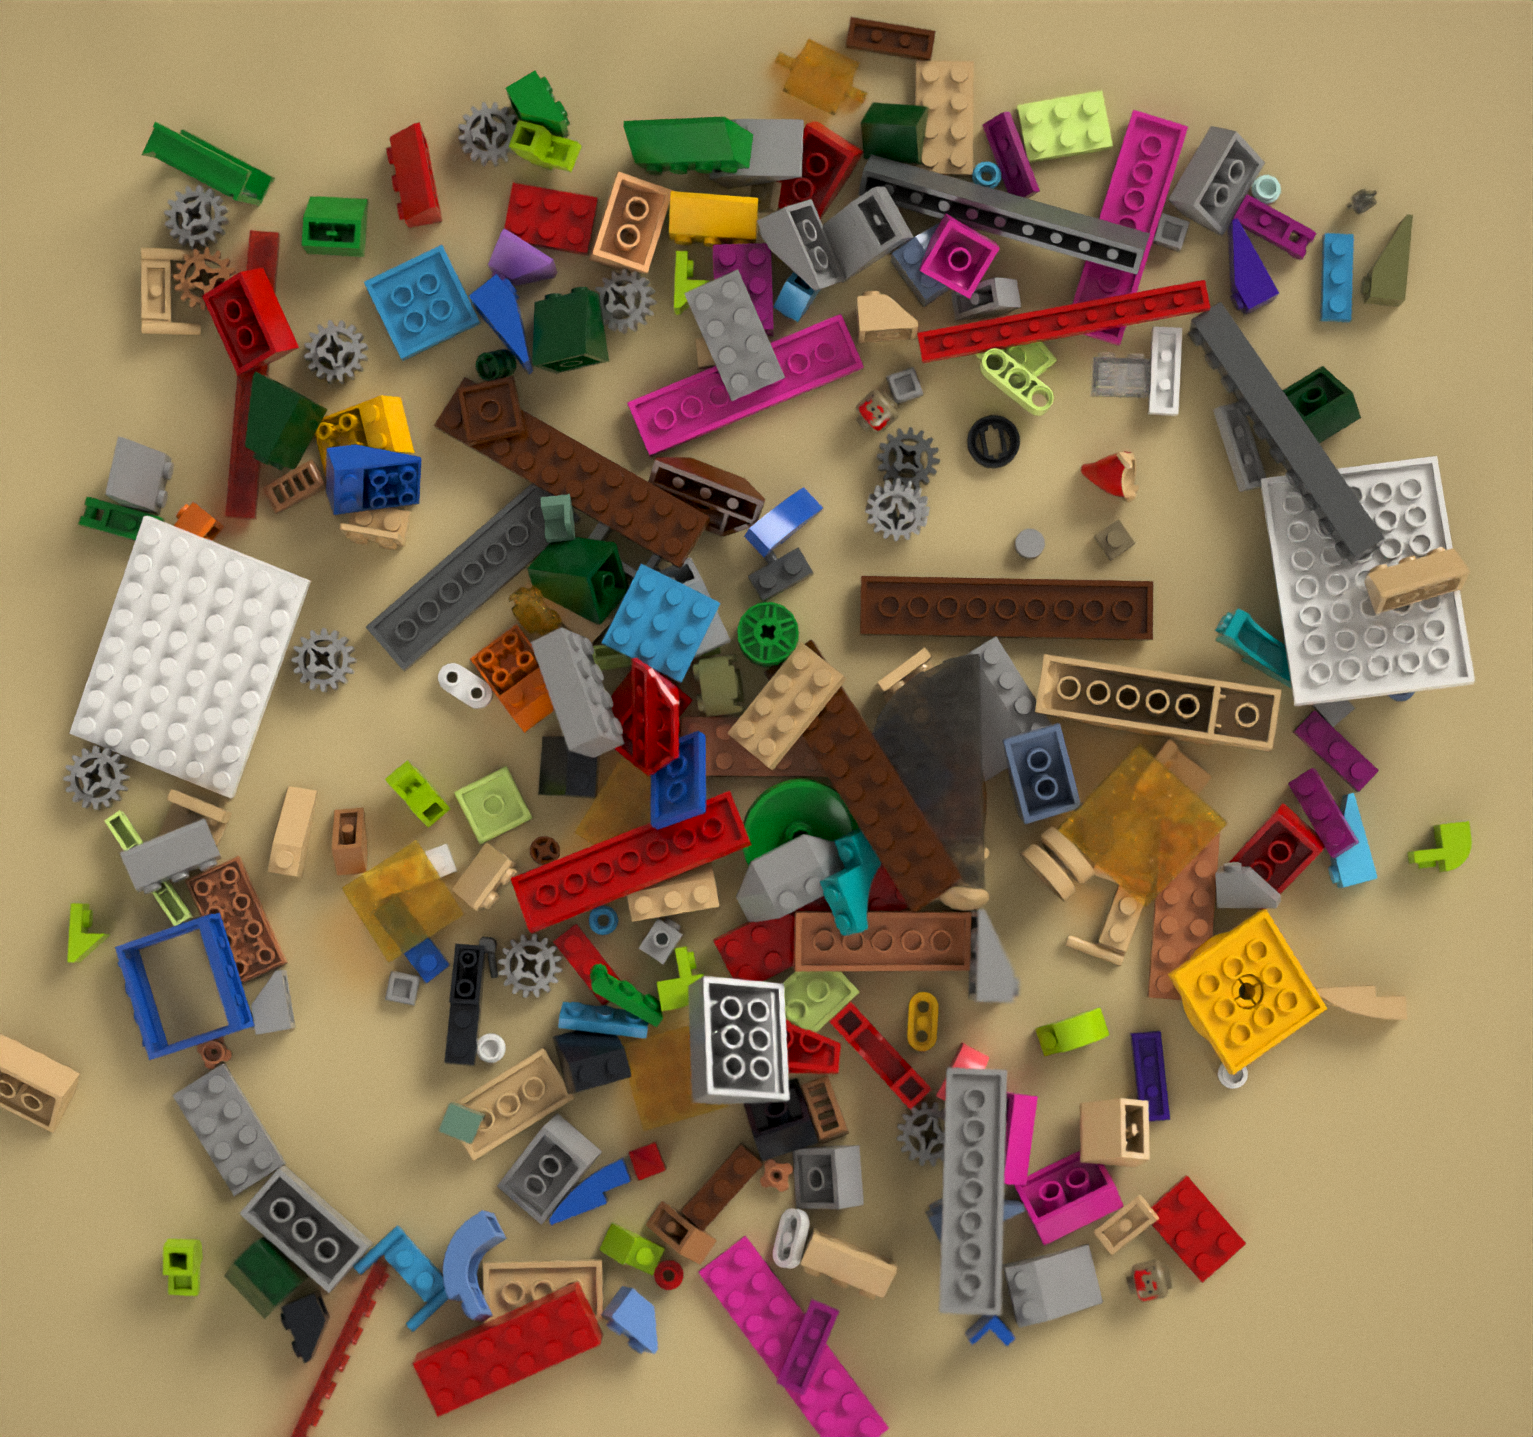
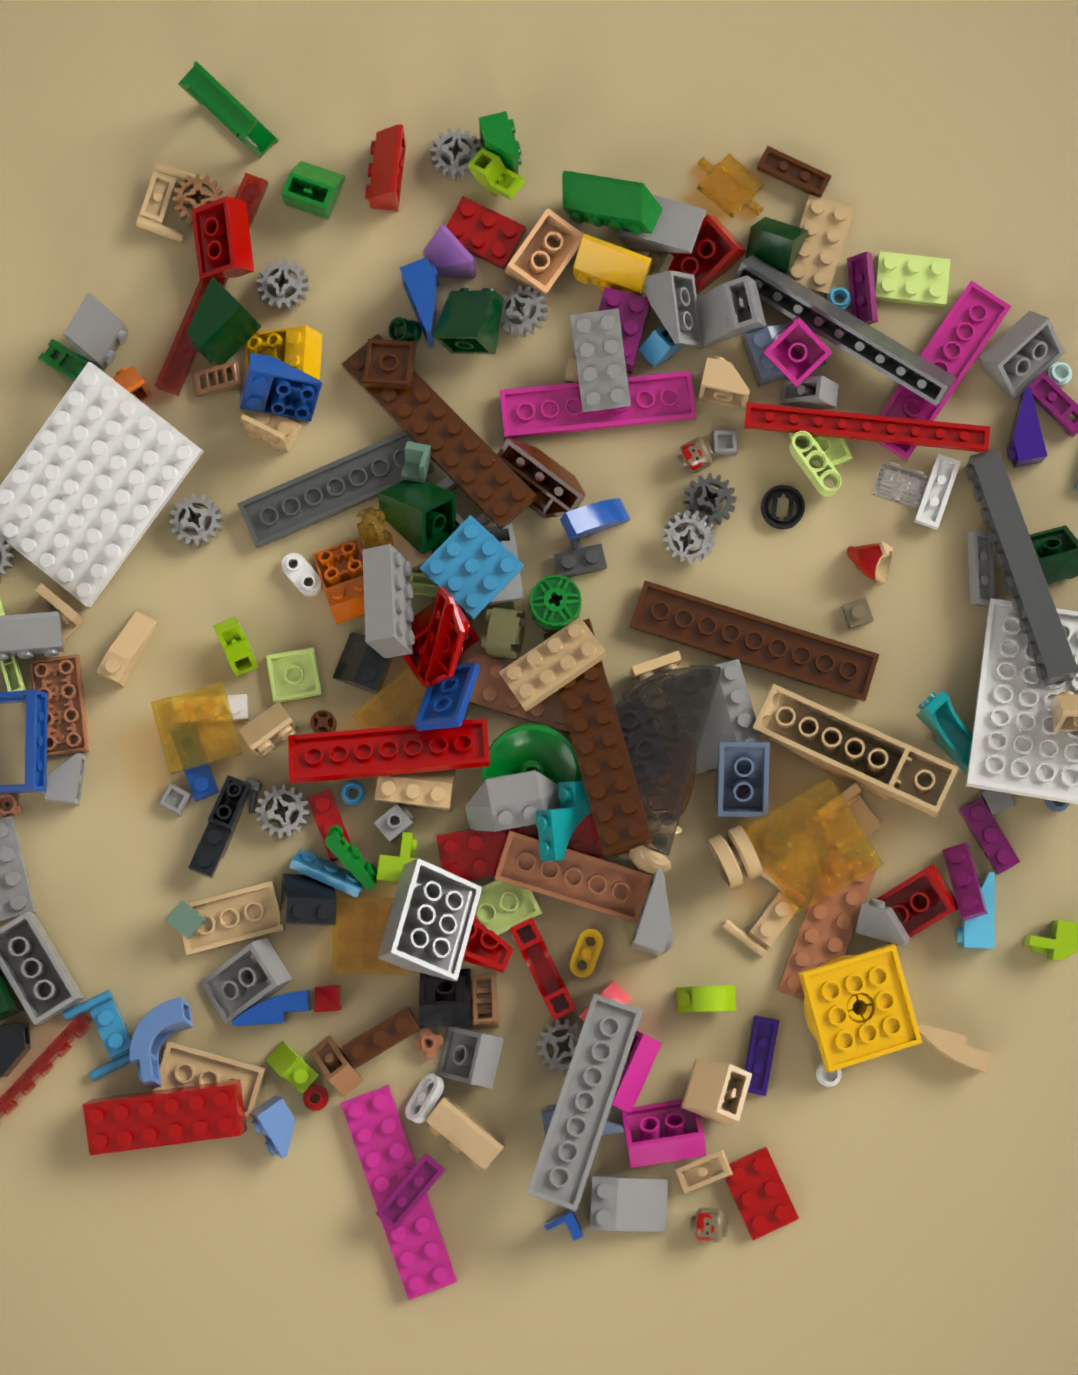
camera: 15 degrees right, 5 degrees down
(201, 207) = (208, 160): light grey gear -> none
(349, 841) = (170, 669): medium nougat slope -> none
(422, 302) = (362, 267): dark azure plate -> none
(490, 1048) = (230, 868): white plate -> none
(683, 270) = (575, 301): lime slope -> none
(1029, 543) = (788, 595): light grey tile -> none
(1171, 232) = (973, 384): light grey plate -> none

